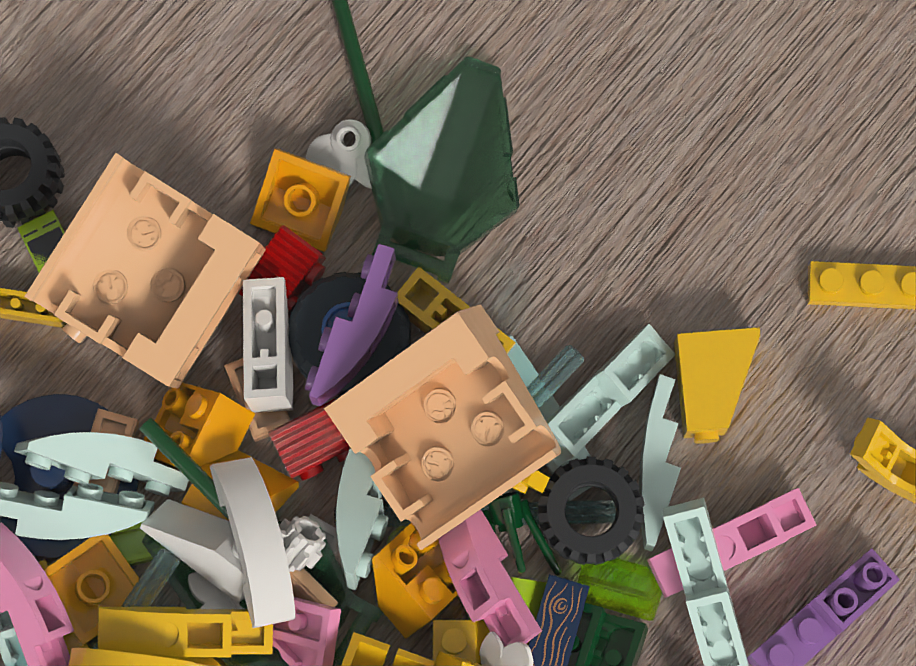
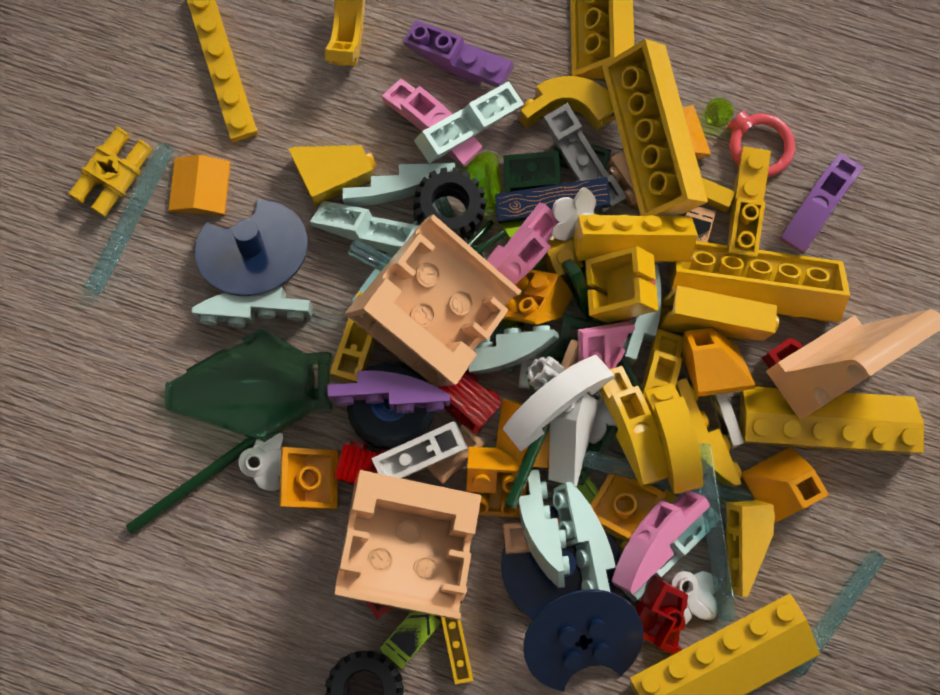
camera: 115 degrees left, 0 degrees up
(414, 639) = (577, 285): none -> dark green tile
(562, 196) = (242, 309): none -> light aqua slope
(627, 234) = (254, 253): none -> dark blue piece
(746, 97) = (129, 218): none -> clear light blue axle
(758, 200) = (199, 185): none -> light orange slope
(815, 109) = (114, 184): none -> yellow pin

